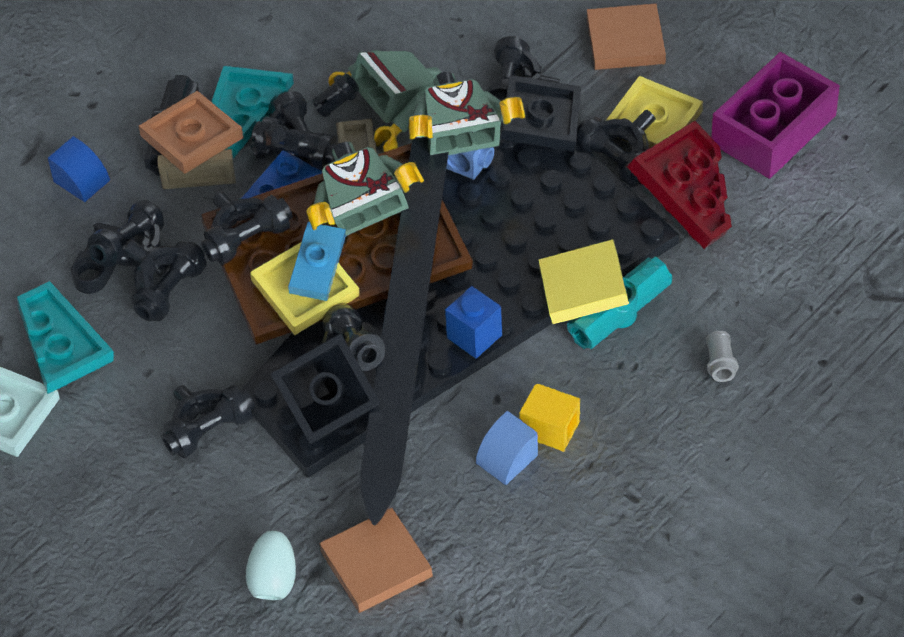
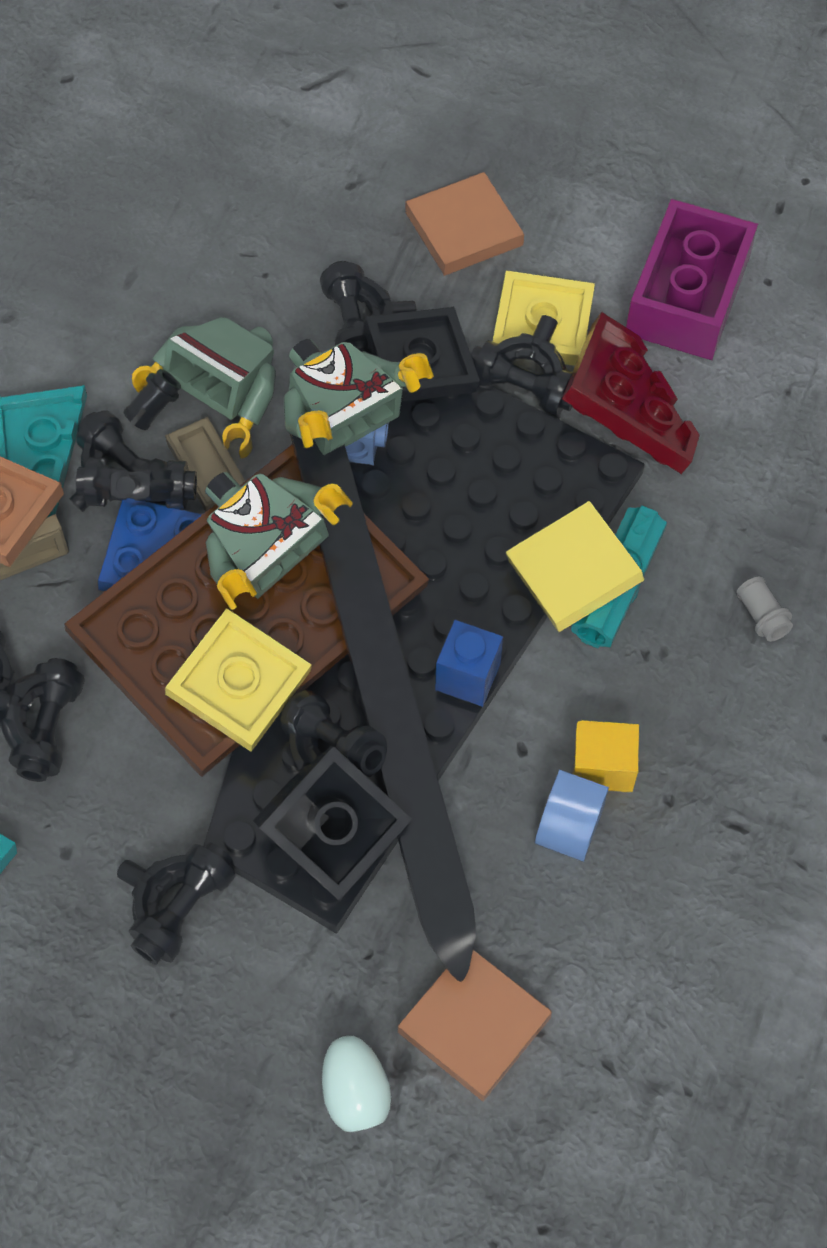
camera: 25 degrees left, 10 degrees up
(264, 215) = (113, 657): black piece -> none
(317, 261) = (248, 648): dark azure plate -> none

